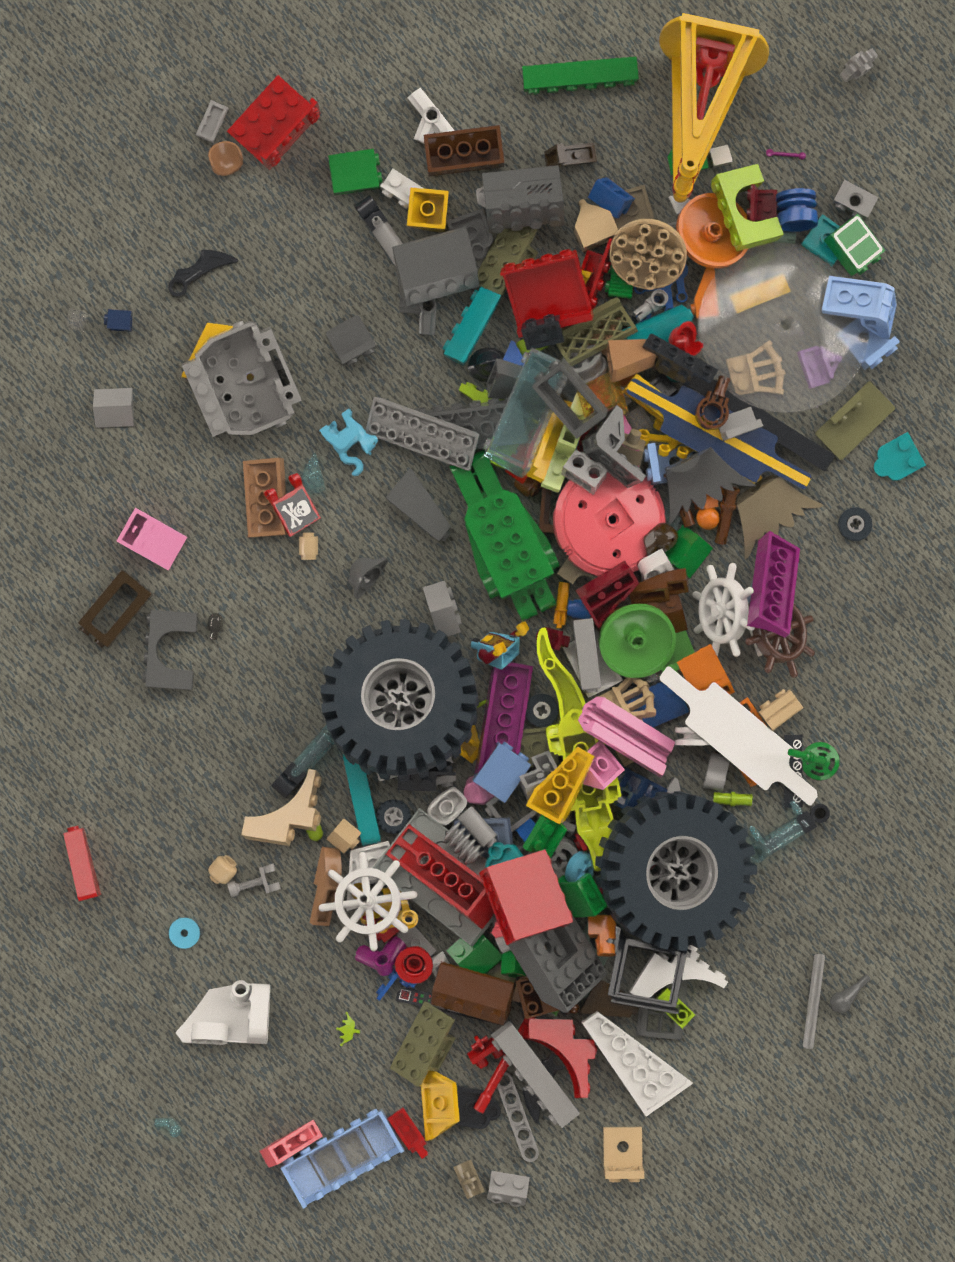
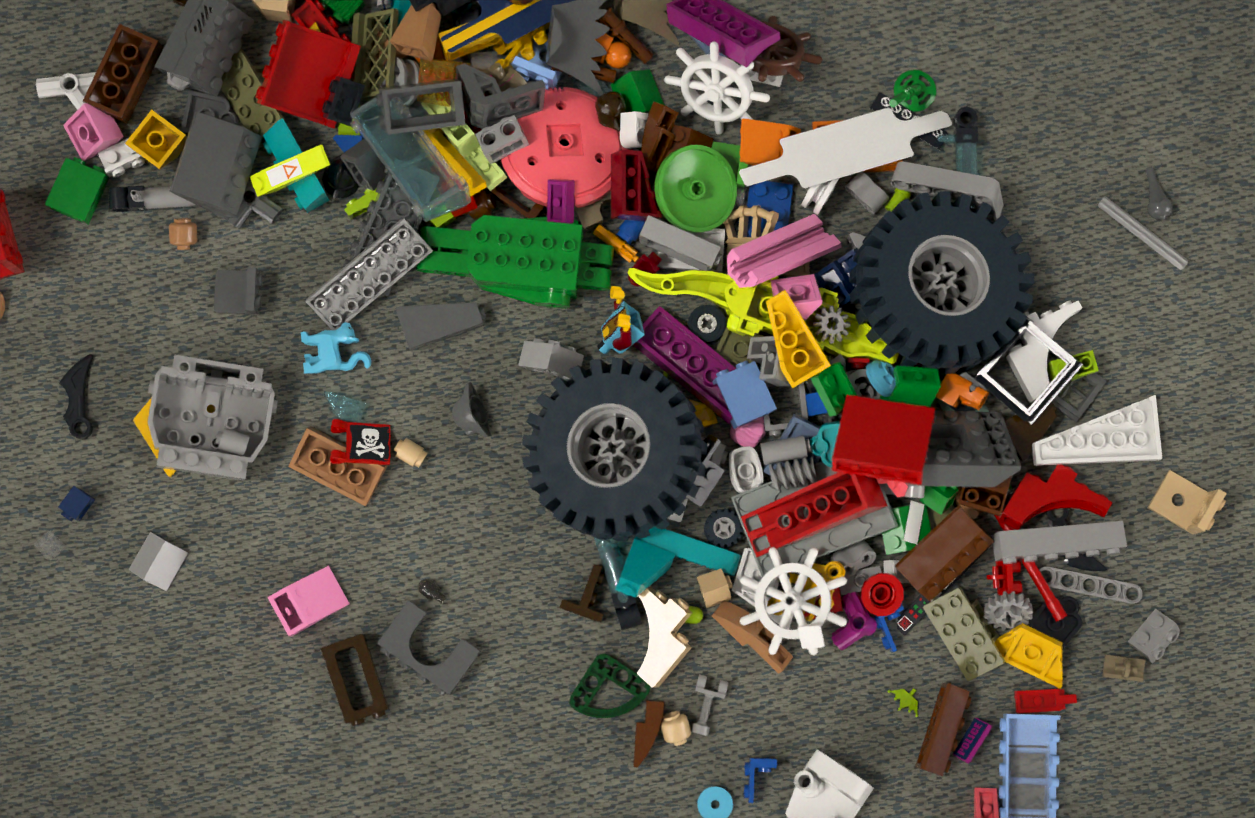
camera: 60 degrees left, 5 degrees down
(208, 850) = (647, 731): none -> reddish brown slope
(228, 790) = (601, 675): none -> dark green beam
(234, 409) = (232, 442): none -> light grey brick
(234, 952) = (763, 765): none -> blue bracket
(279, 746) = (588, 597): none -> dark brown bracket
(326, 773) = (643, 567): none -> teal slope
(340, 1070) = (943, 728): none -> reddish brown slope
(346, 1096) = (972, 740): none -> slope
(348, 930) = (811, 635): none -> white slope
(370, 272) = (183, 233): none -> medium nougat head
(405, 154) = (92, 131): none -> bright pink slope
(429, 927) = (854, 557): none -> light grey axle
(459, 1066) = (1008, 610): none -> light grey gear
(463, 326) = (289, 171): none -> neon yellow slope
(482, 956) = (914, 522): none -> white sticker
(563, 545) = (560, 201): none -> magenta slope
(594, 812) = (824, 320): none -> light grey gear
(758, 831) = (930, 179): none -> light grey beam
(780, 709) = (843, 96): tan brick -> none

